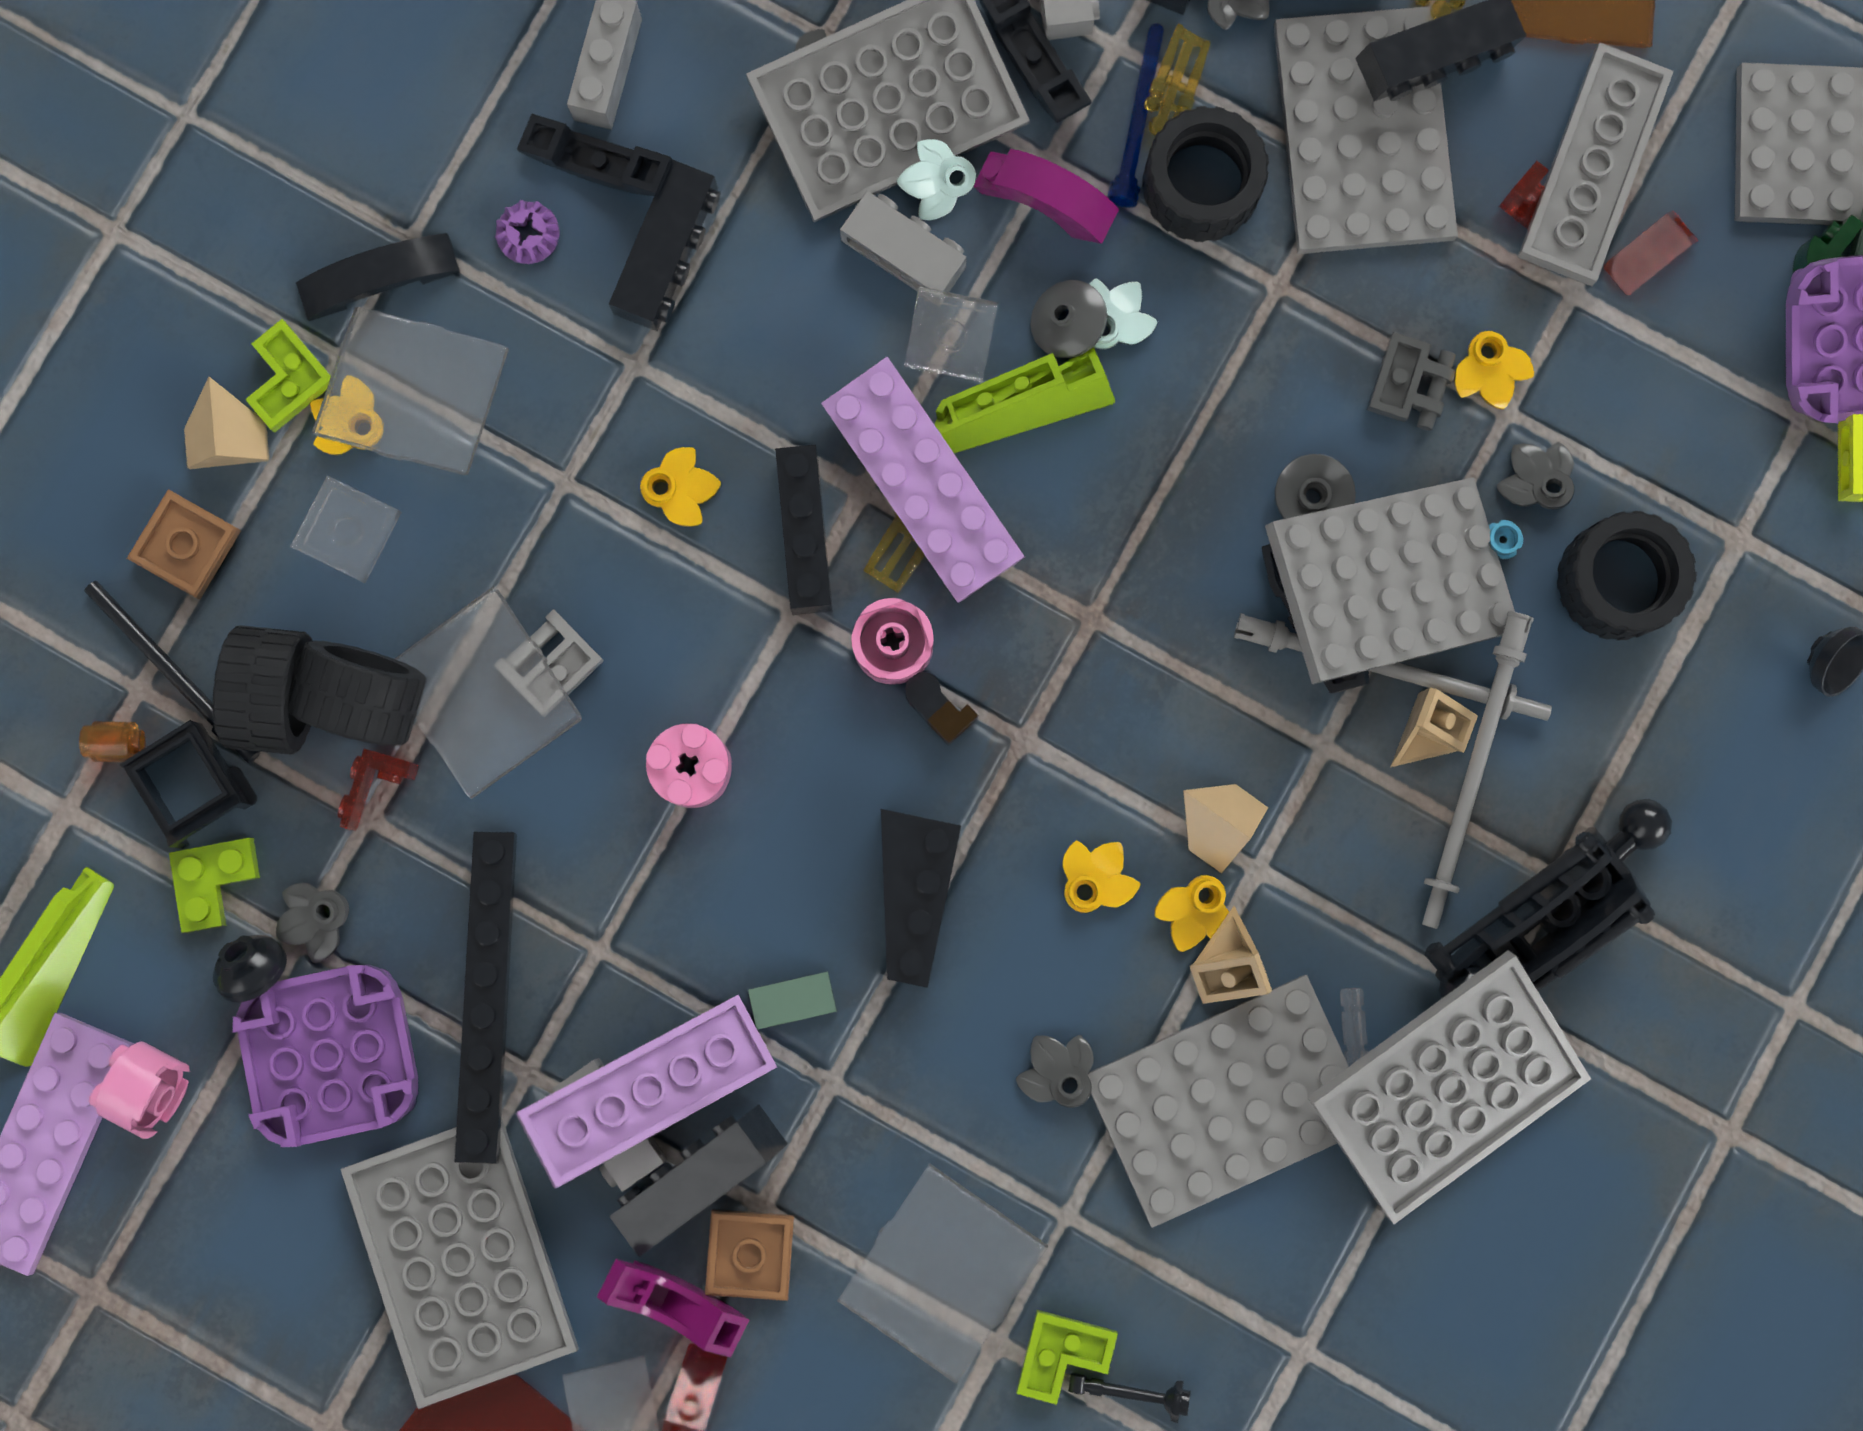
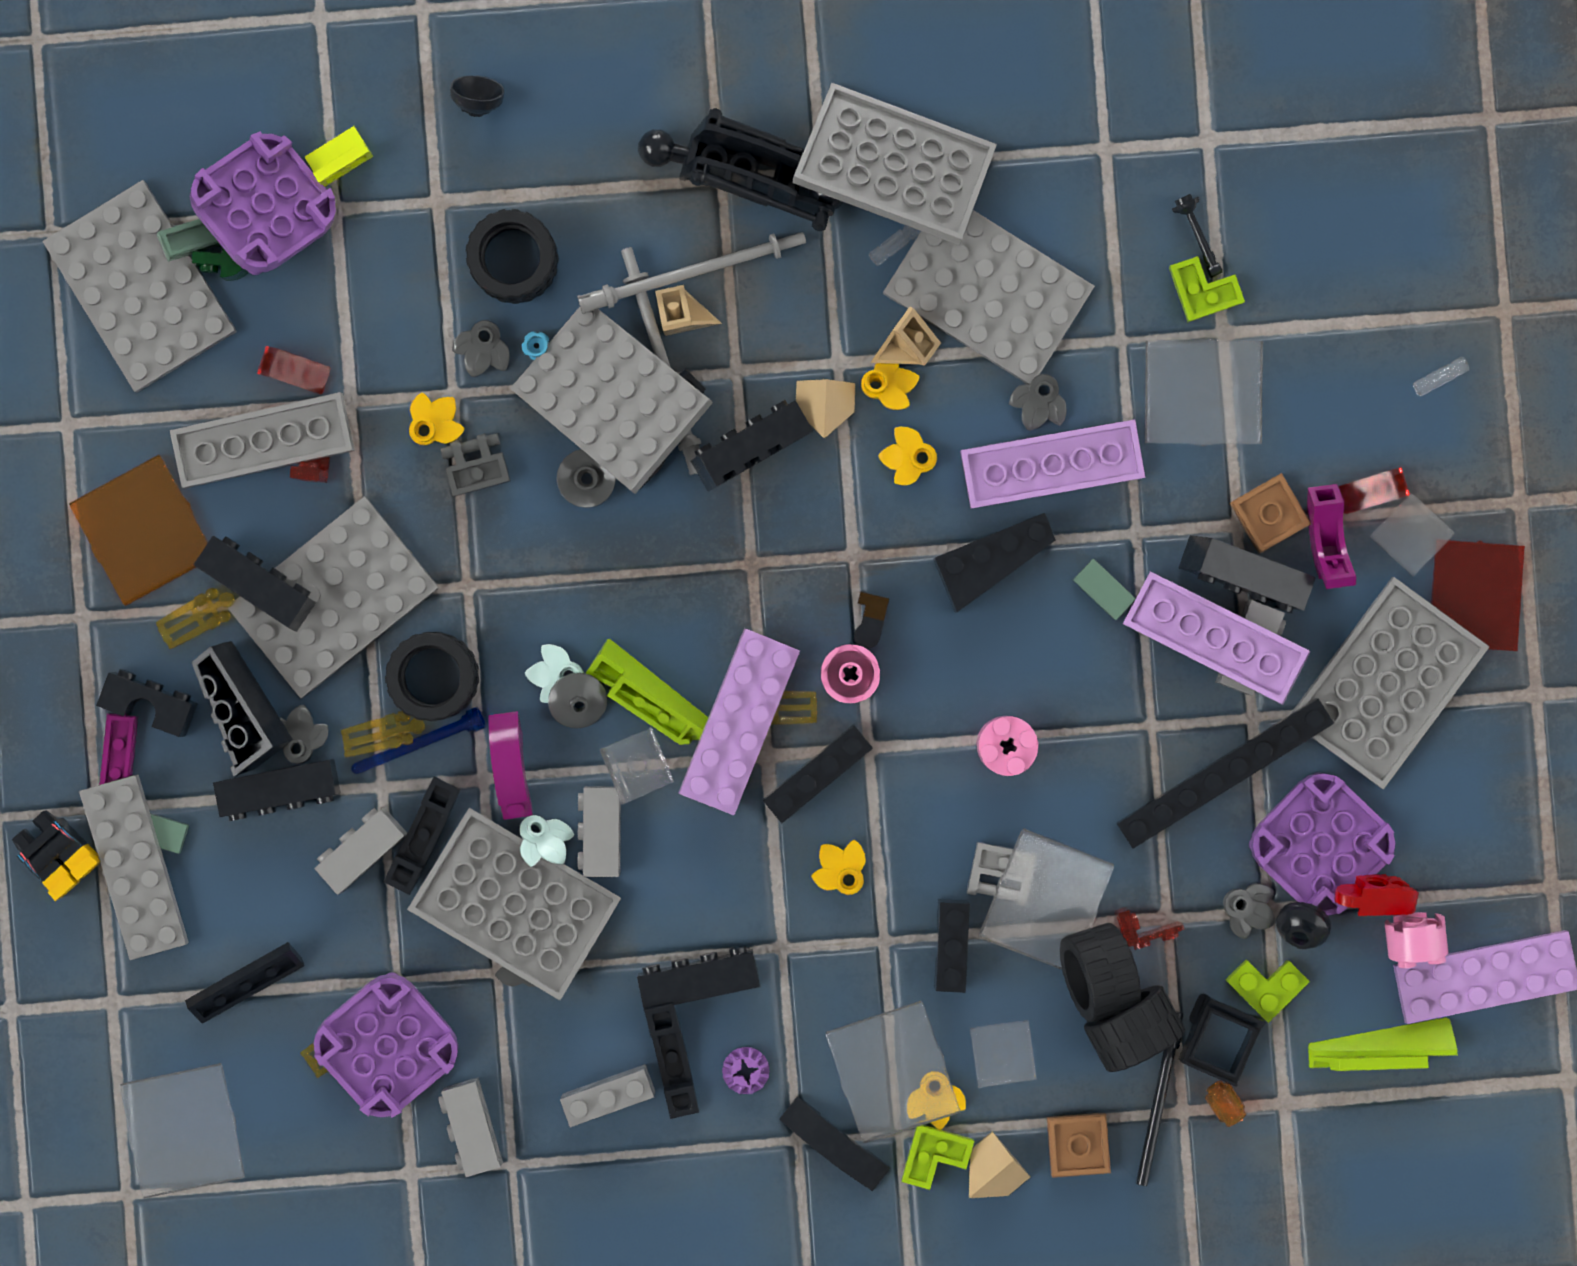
camera: 120 degrees left, 5 degrees up
(221, 1077) = (1378, 895): none -> red piece
(506, 550) = (952, 945): none -> black arch
(976, 1038) = (1052, 464): none -> lavender plate
(1231, 703) = (750, 446): none -> black wedge

